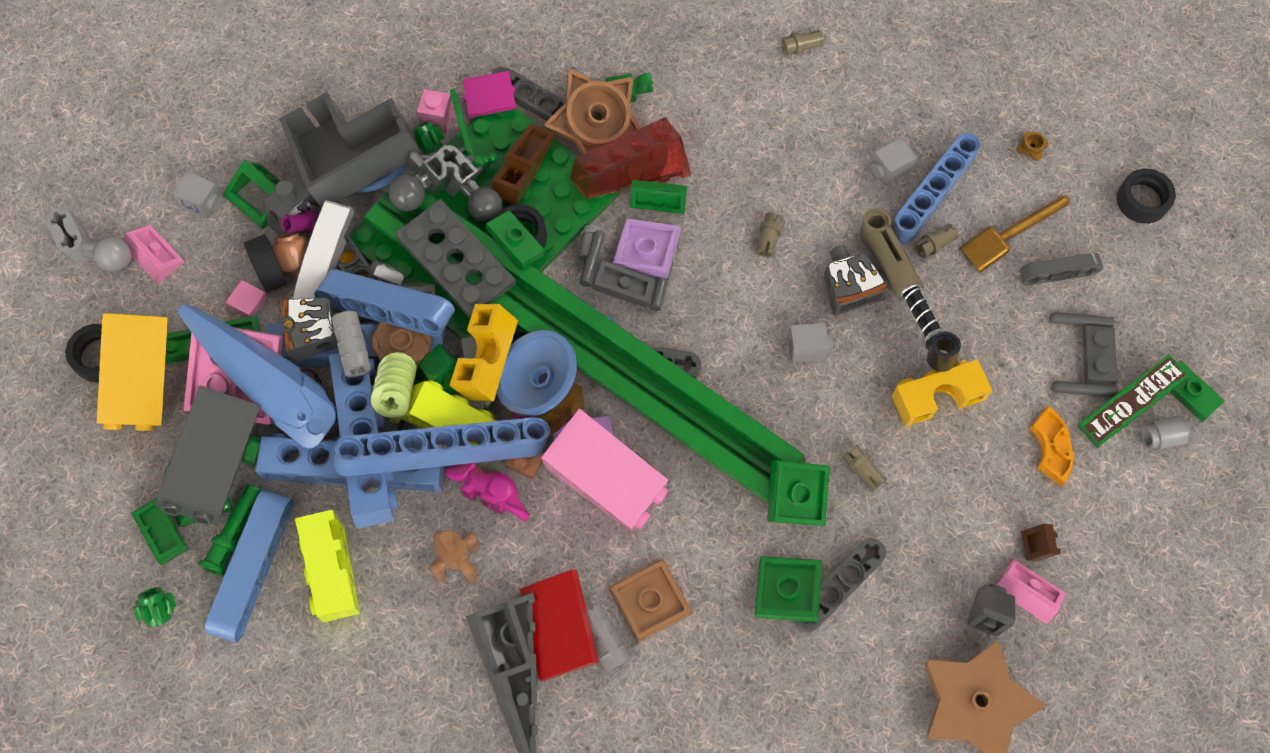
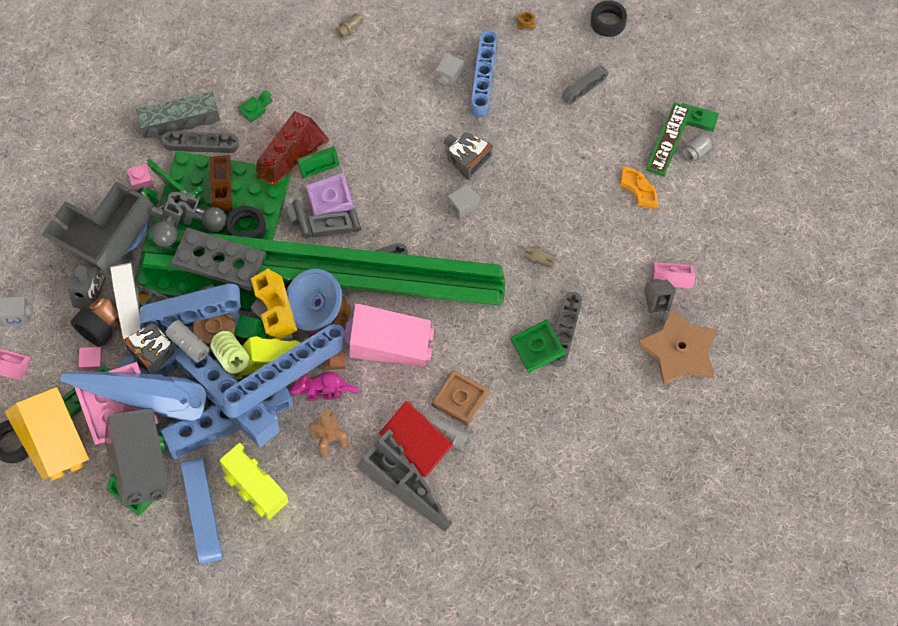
camera: 30 degrees left, 5 degrees down
(154, 606) = (157, 566): green gear -> none
(159, 532) = (128, 523): green plate -> none
(226, 542) = (177, 505): green pin -> none
(262, 177) = (38, 279): green tile -> none
(299, 222) = (101, 289): magenta pin -> none
(386, 272) = (177, 291): light grey tile -> none
(489, 94) = (169, 152): dark pink piece -> none
(515, 239) = (249, 229): green plate -> none
(527, 51) = (178, 114): none -> dark grey brick
(588, 98) = (237, 126): medium nougat plate -> none
(769, 231) = (399, 148): dark tan pin -> none
(798, 493) = (511, 289): green tile -> none
(907, 286) = (466, 117): piece -> none
(932, 242) = (501, 107): dark tan pin -> none
(964, 383) = (567, 178): yellow arch -> none
(991, 246) = (536, 92): pearl gold piece -> none
(1040, 542) = (663, 244): reddish brown tile -> none
(1099, 355) = (634, 123): dark grey plate -> none

